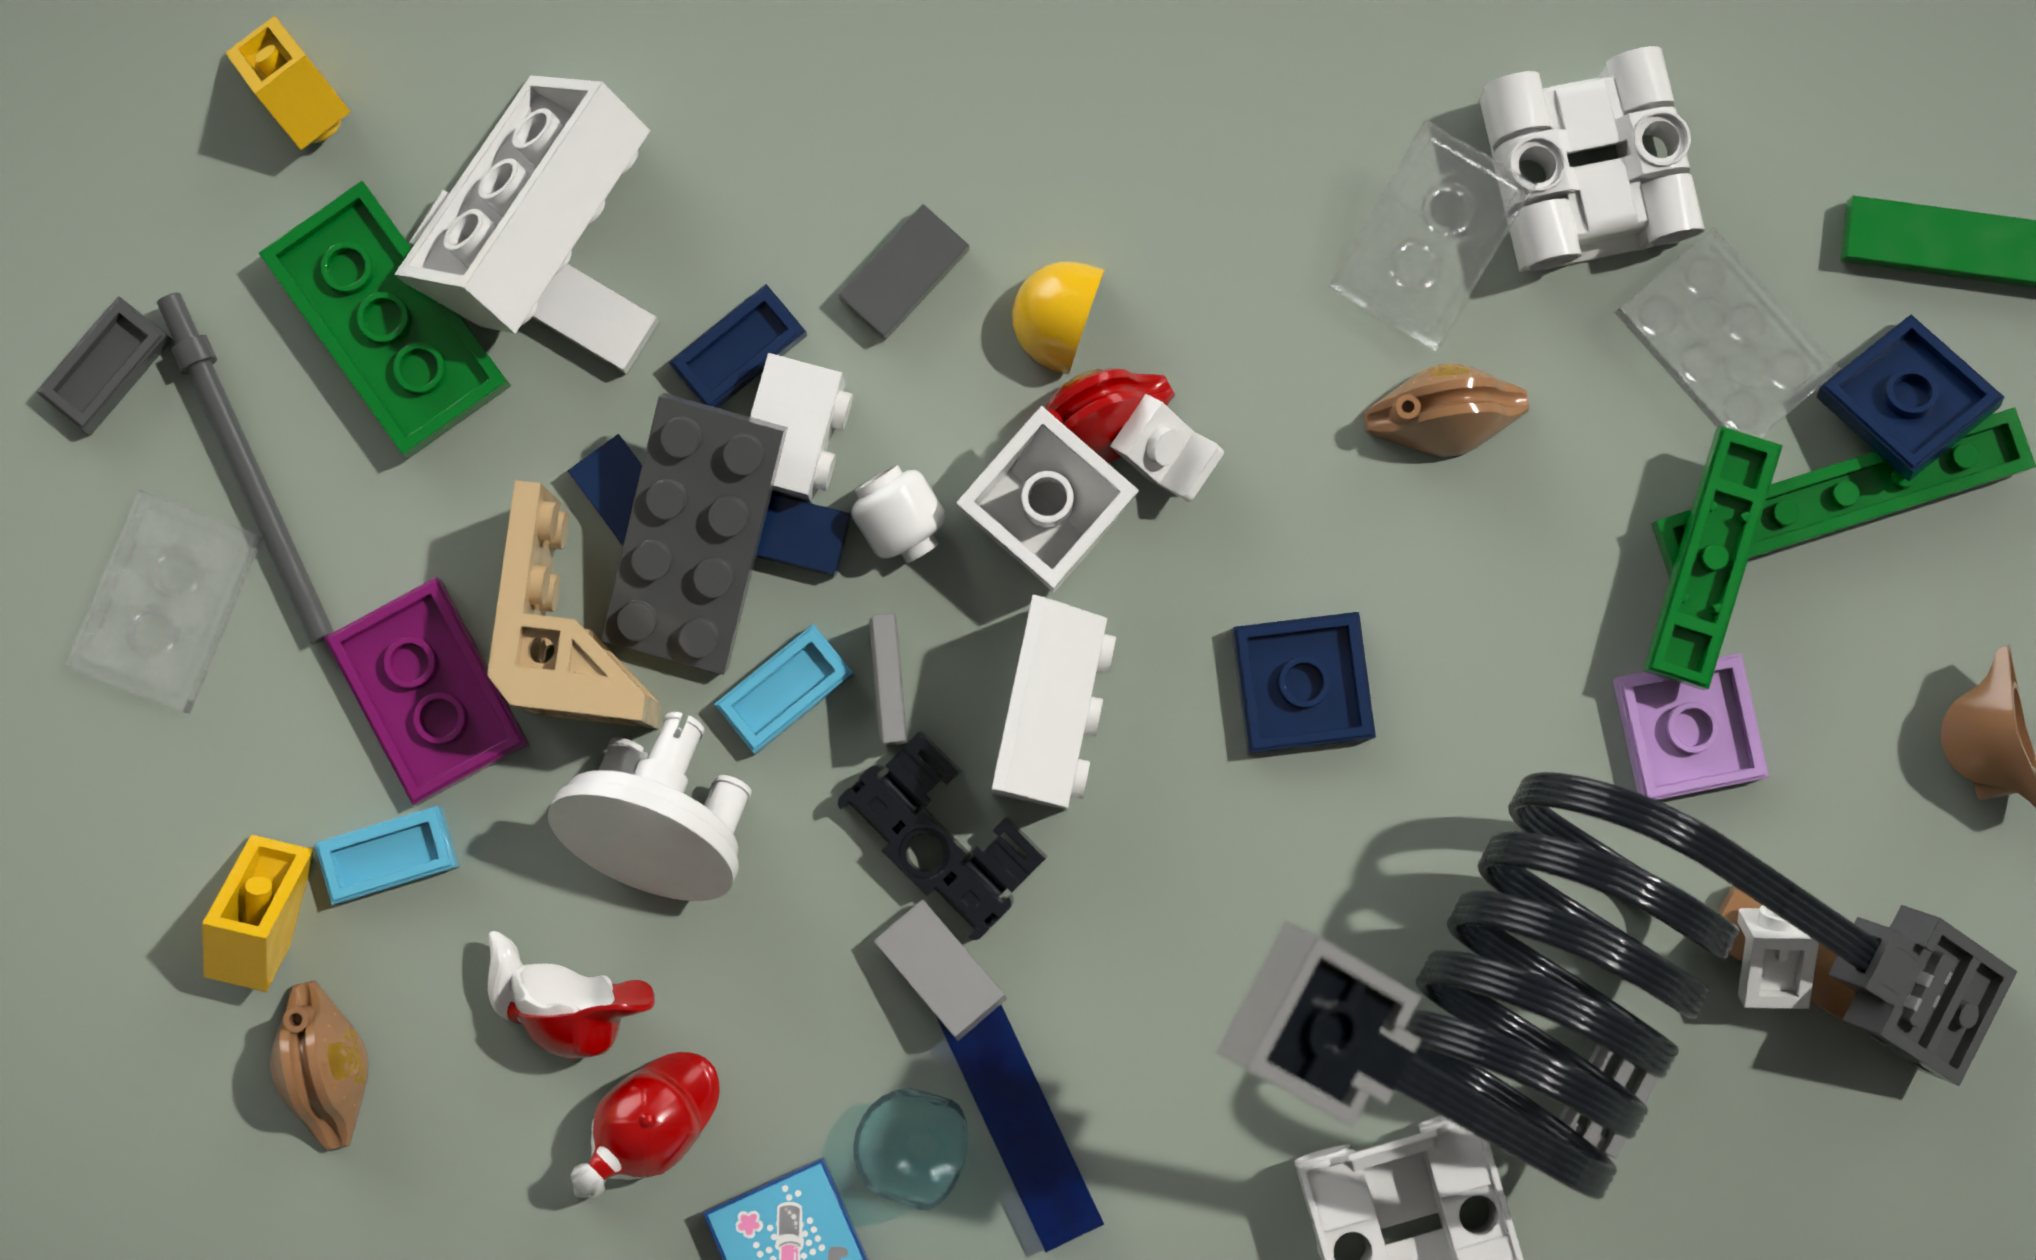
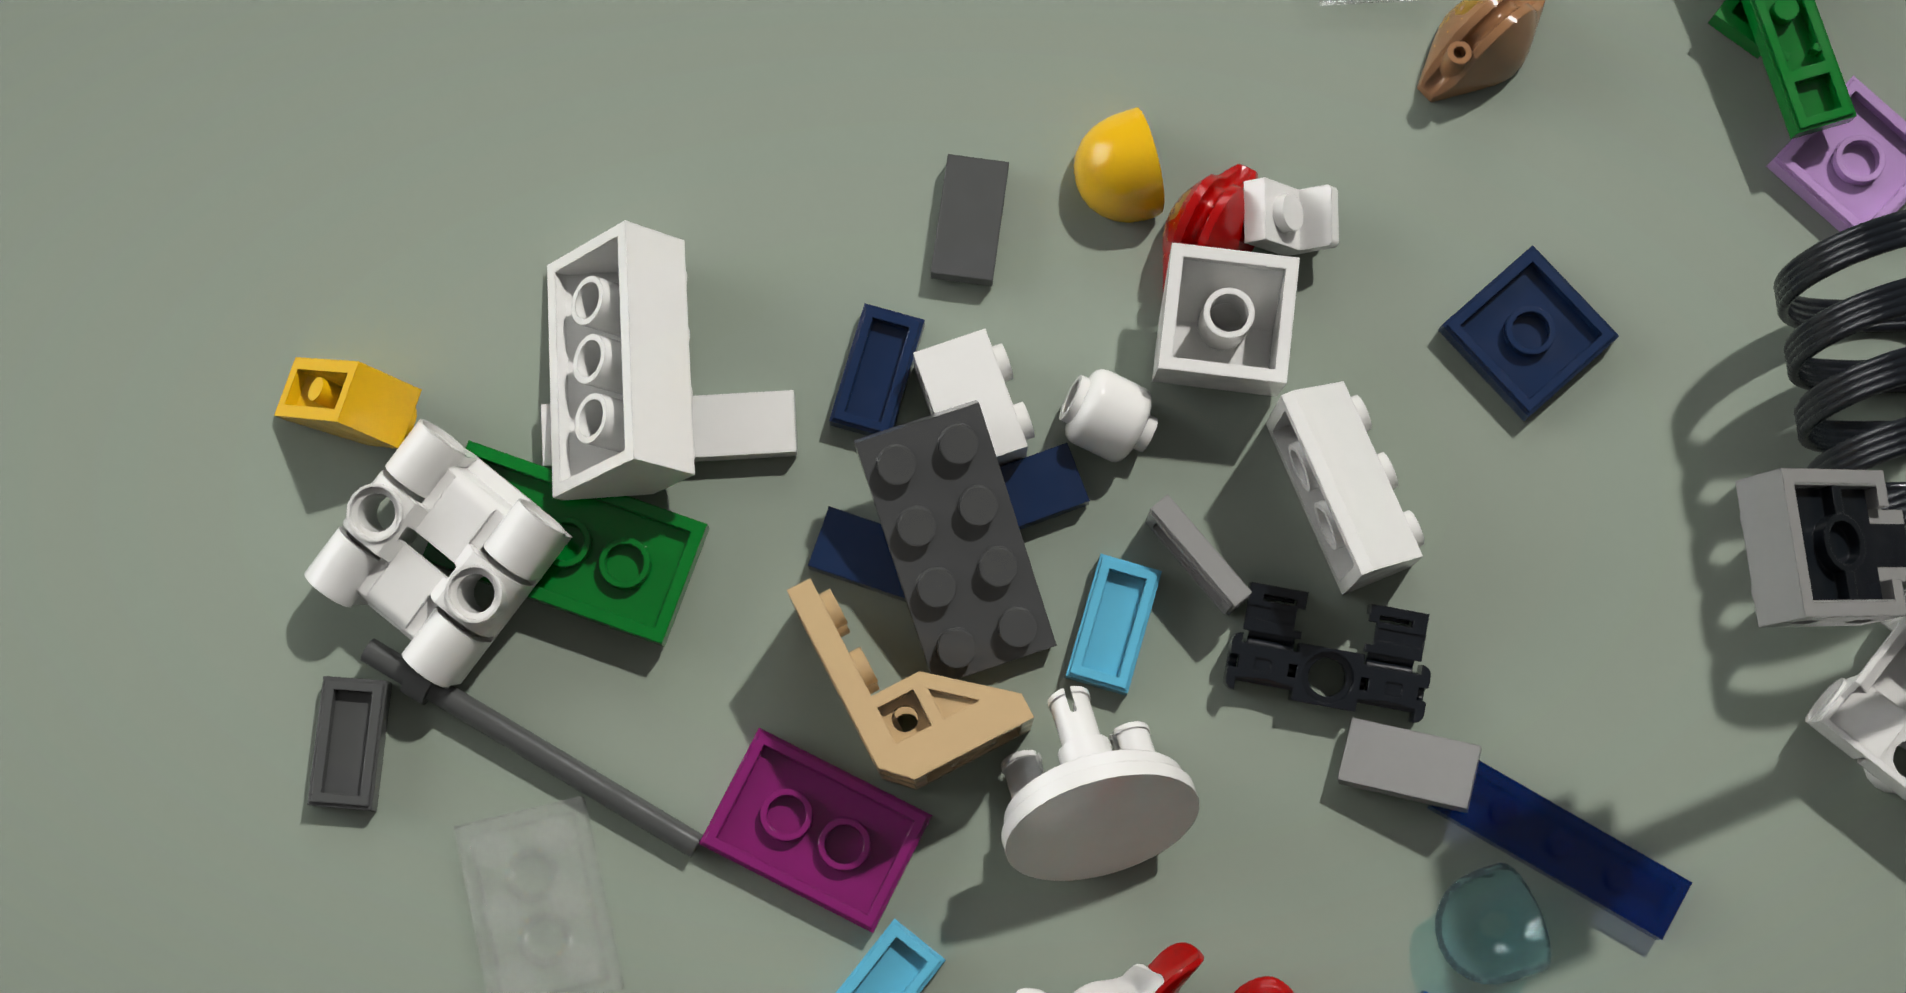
camera: 30 degrees left, 5 degrees down
(312, 242) = (466, 516): none -> white piece

